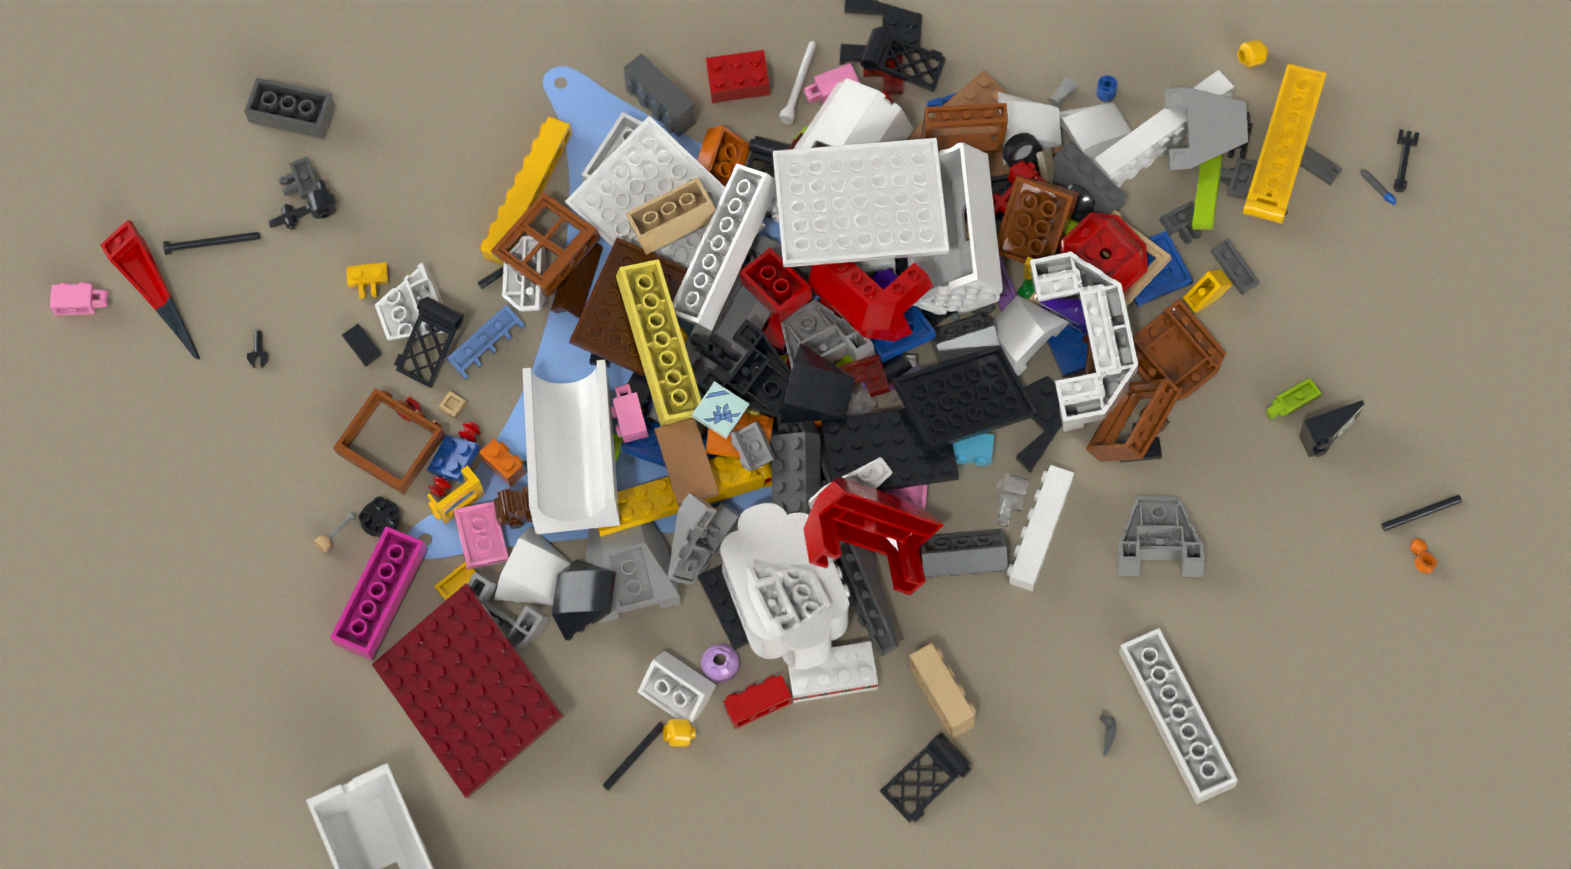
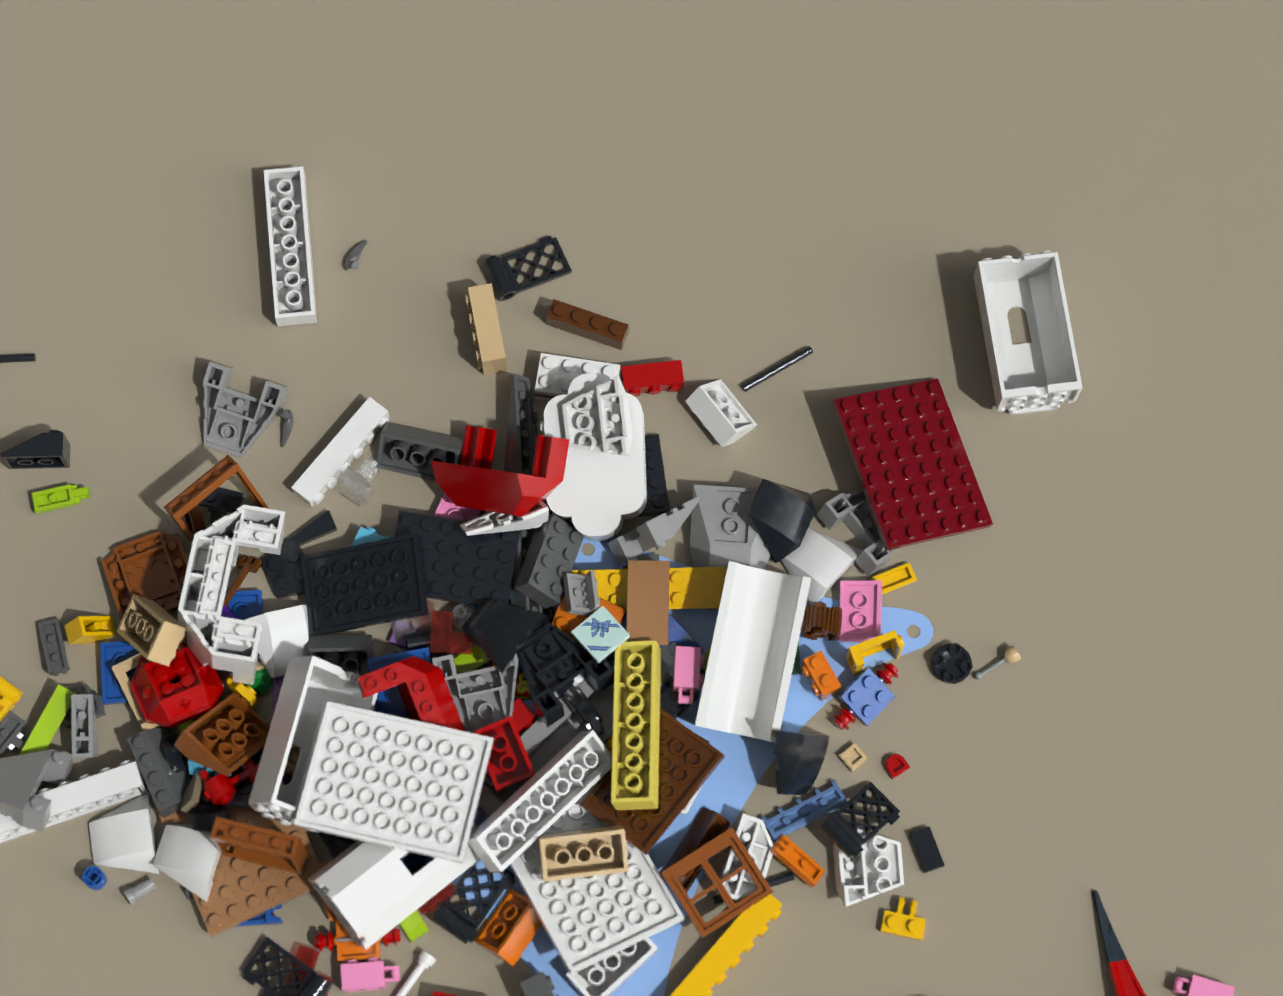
camera: 170 degrees left, 5 degrees up
(258, 351) = (1032, 878): black bar -> none
(359, 421) = (946, 711): dark orange window -> none
(379, 593) = (970, 583): dark pink brick -> none
(477, 293) = (797, 860): none -> orange hinge
(497, 373) = (798, 760): none -> black wedge
(678, 732) = (731, 372): yellow head -> none
(723, 672) = (678, 435): lavender piece -> none
(842, 734) = (587, 324): none -> reddish brown brick
(1105, 542) = (287, 425): none -> dark grey bar
(1144, 282) = (151, 630): none -> tan brick
(1170, 195) = (84, 726): none -> light grey slope
(1424, 561) = (13, 312): orange plate -> none

